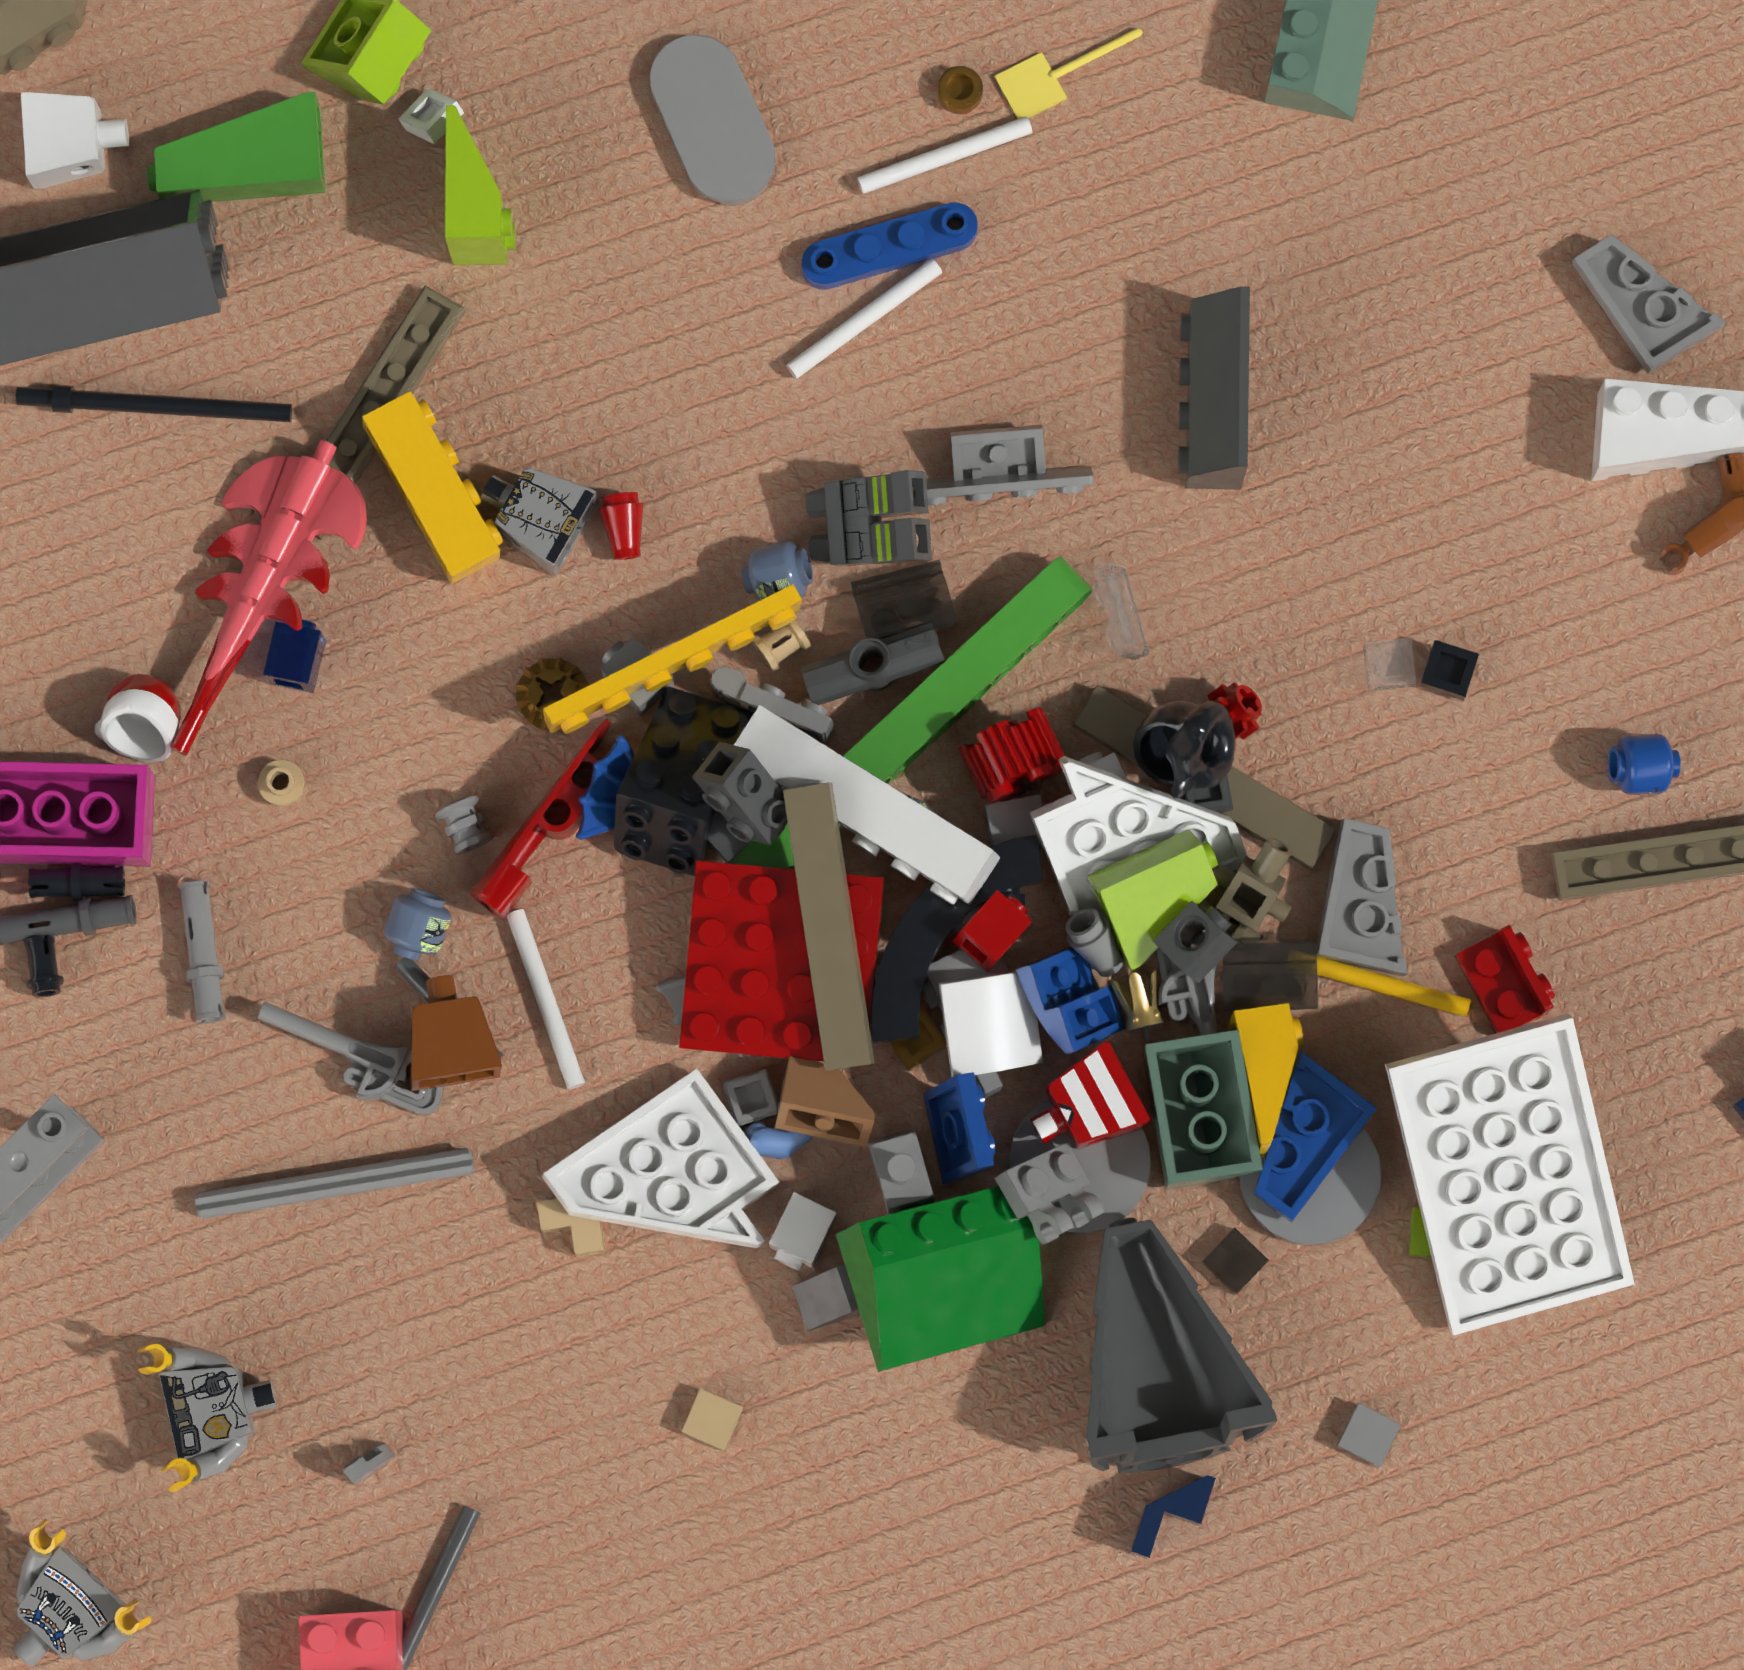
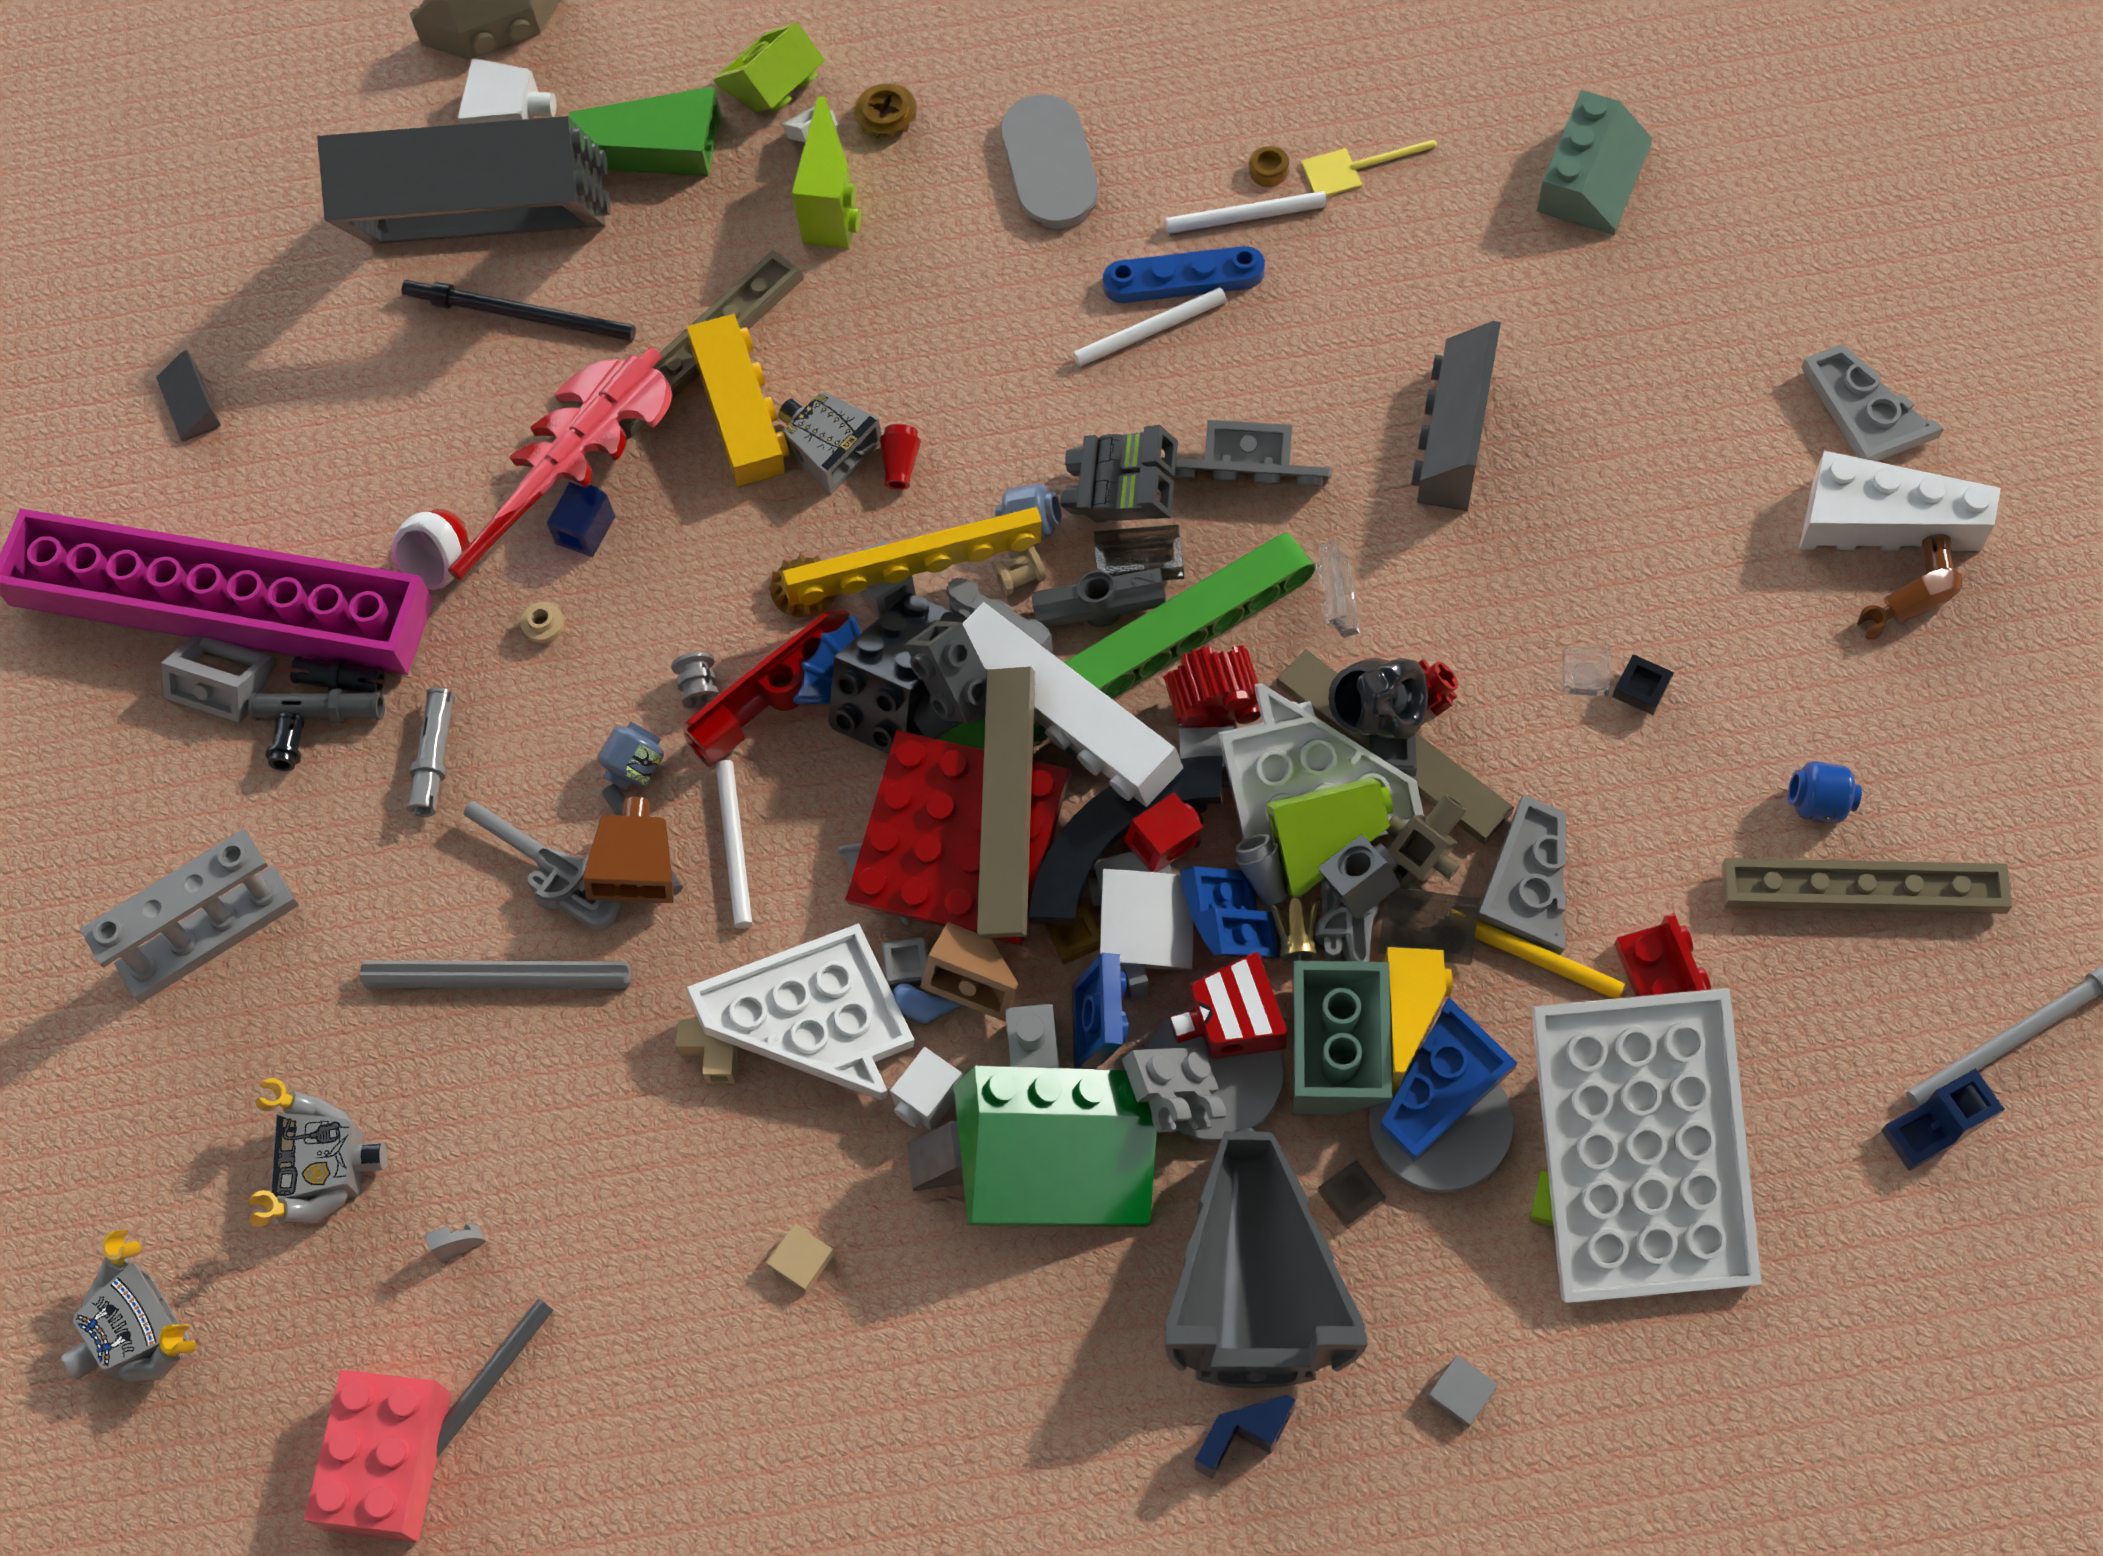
camera: 15 degrees right, 15 degrees down
(498, 66) = (876, 100): none -> pearl gold gear

